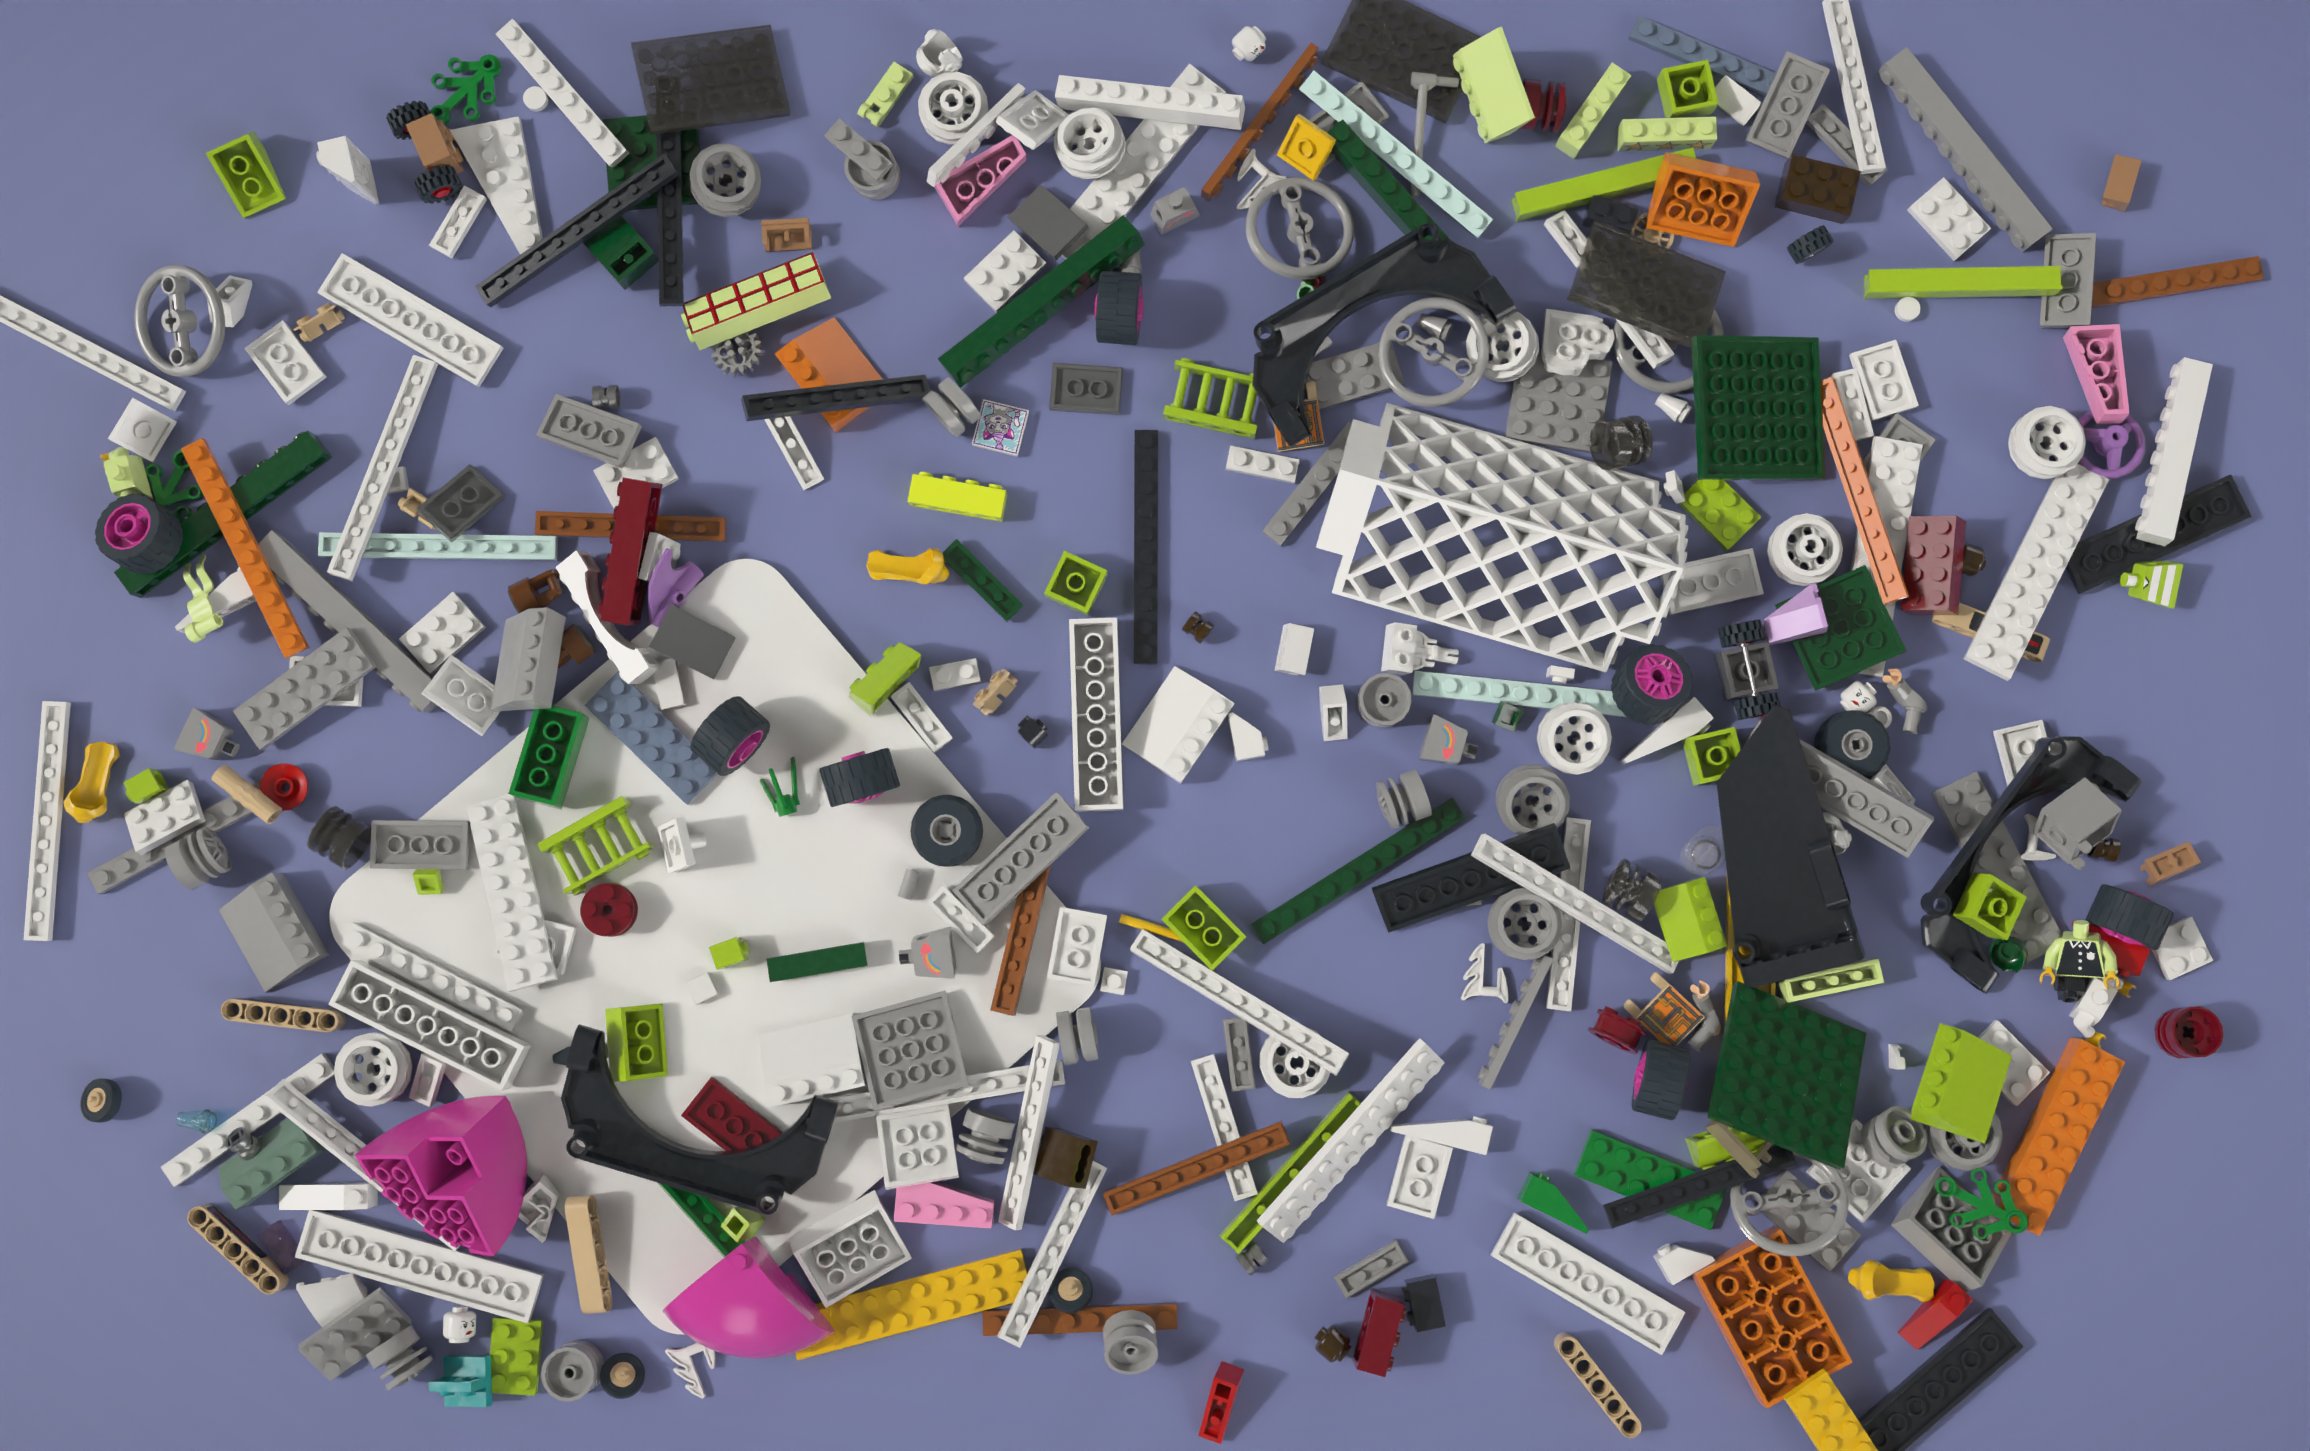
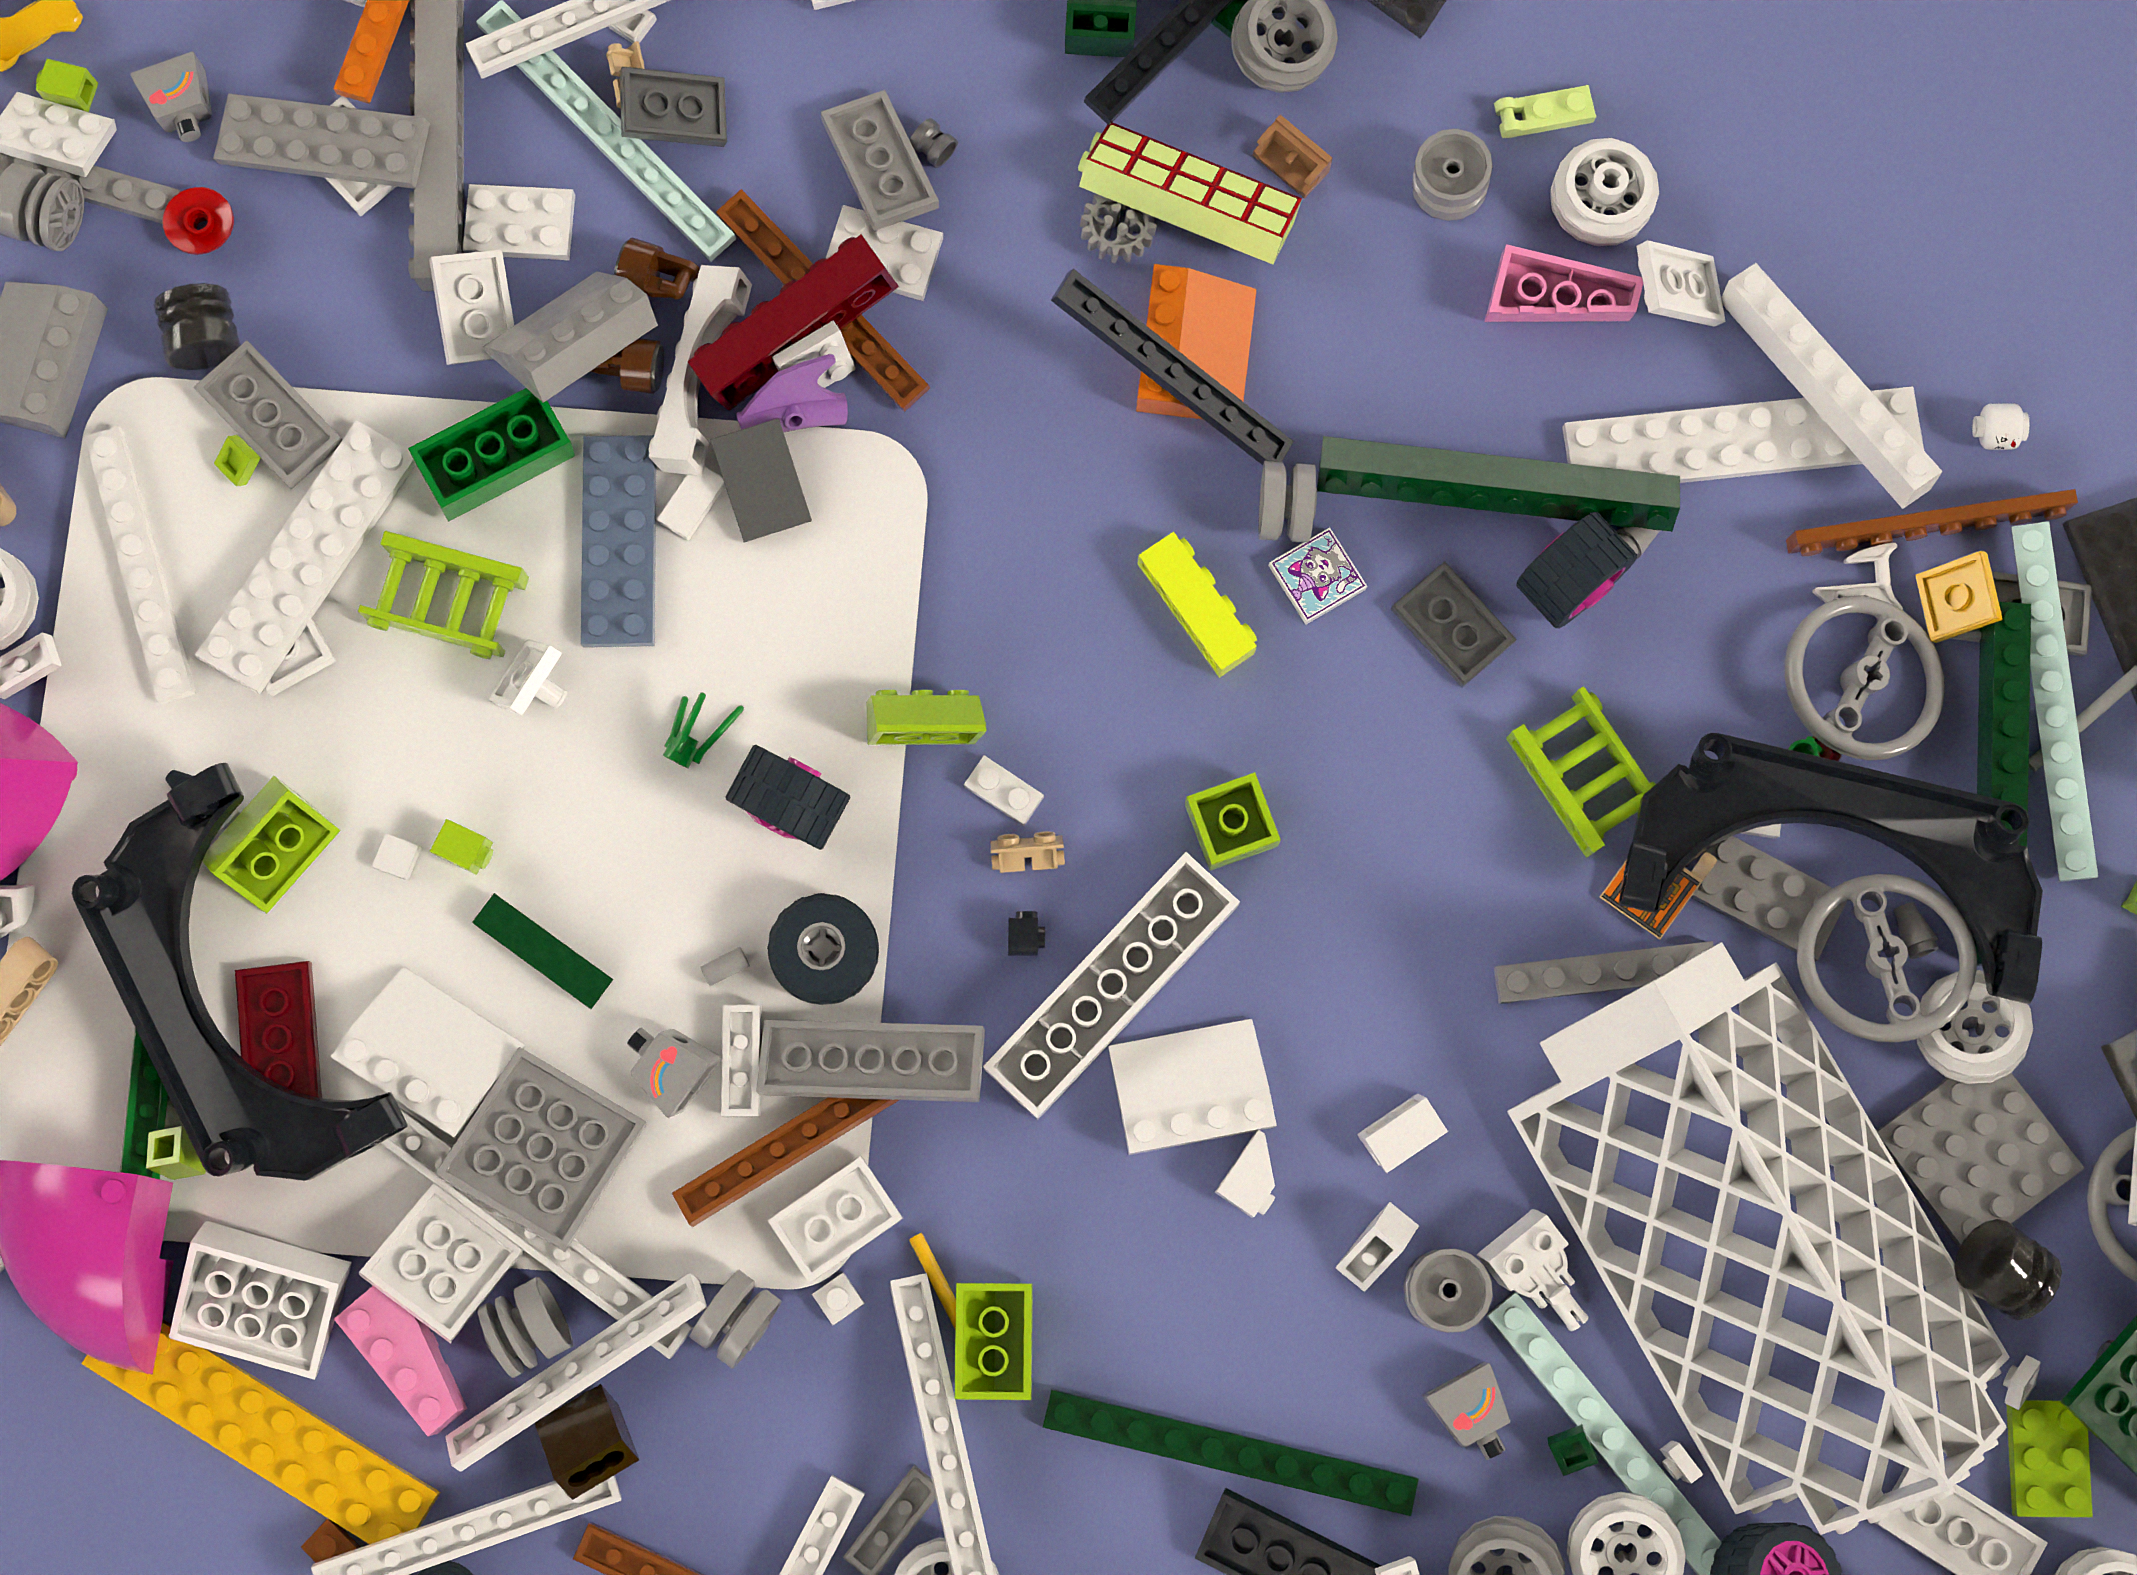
camera: 45 degrees right, 5 degrees down
(246, 794) = (152, 190): tan axle -> none
(430, 1024) = (82, 611): white brick -> none
(595, 905) = (369, 664): dark red wheel -> none
(730, 735) = (697, 616): black wheel -> none
(795, 451) = (1074, 386): white slope -> none
(858, 150) = (1457, 137): light grey plate -> none
(921, 717) = (921, 800): white plate -> none
(922, 569) = (1081, 642): yellow hair -> none
(938, 54) = (1644, 120): white helmet -> none
(972, 139) = (1592, 240): white plate -> none
(982, 580) = (1133, 718): dark green plate -> none
(1005, 271) = (1489, 415): white plate -> none
(1048, 222) = (1588, 407): dark grey tile -> none
(1091, 156) = (1731, 369): white wheel -> none
(1145, 546) = (1348, 858): black plate -> none
(1174, 209) = (1742, 526): light grey torso -> none
(1202, 630) = (1319, 1010): dark brown wheel -> none
(1262, 464) = (1567, 894): white plate -> none
(1403, 799) = (1360, 1424): light grey wheel -> none
(1572, 340) = (2060, 1100): white plate -> none
(1673, 407) = (2107, 1290): white cone -> none

